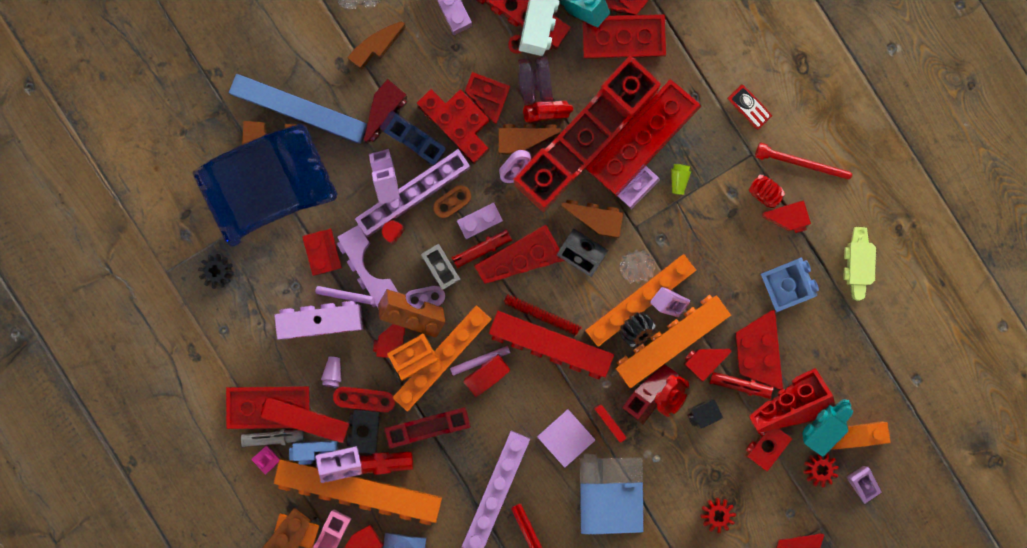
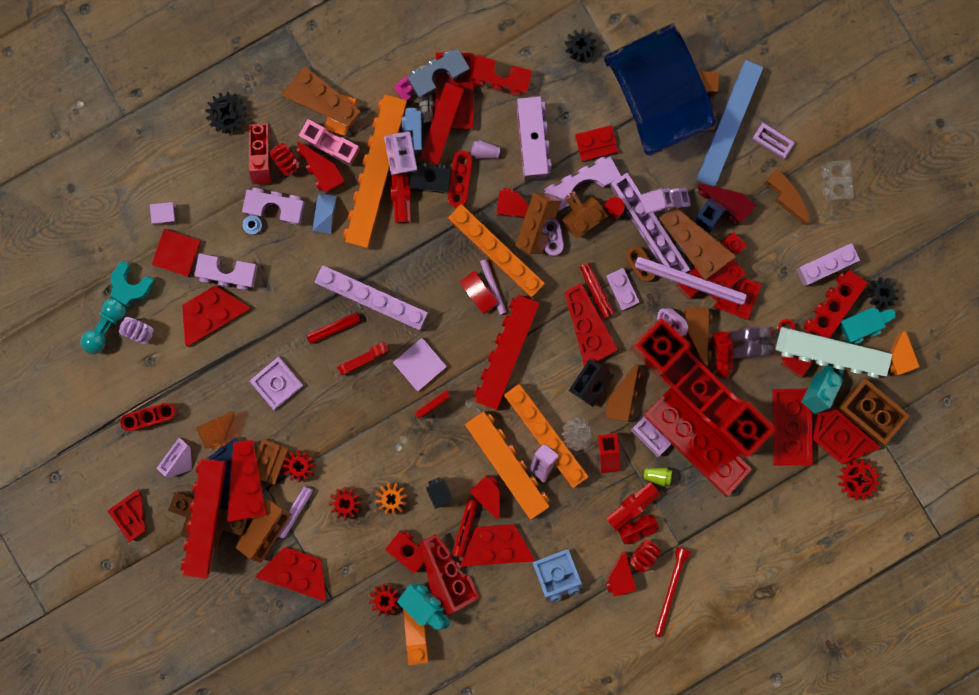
camera: 85 degrees right, 0 degrees up
(239, 411) = (451, 64): none -> sand blue arch
(249, 376) = (483, 74): none -> red arch
(307, 76) = (759, 132): none -> lavender tile
(345, 295) = (556, 163): lavender bar -> none
(401, 264) = (583, 215): none -> dark orange brick
(412, 357) = (498, 223): orange plate -> none
(427, 427) = (432, 236): dark red arch -> none
(431, 141) = (699, 246): none -> dark orange wing
(440, 267) = (580, 251): light grey brick -> none
(471, 148) = (689, 280): none -> lavender axle
(542, 315) = (525, 361): red piece -> none
(562, 499) = (374, 353): none -> red beam
(611, 495) = (366, 405): medium blue door -> none
(637, 329) = (519, 431): black gear -> none
(641, 402) = (459, 443): dark red slope -> none
(656, 232) = (608, 452): none -> red slope
(672, 395) = (456, 462): red plate -> none
(713, 205) = (633, 506): none -> red piece
(720, 465) = (398, 499): none -> orange gear
(740, 207) = (646, 524): none -> red hinge
(749, 106) = (724, 542): slope -> none
(860, 263) = (576, 643): yellowish green hinge -> none
(864, 484) = (370, 640): lavender slope -> none

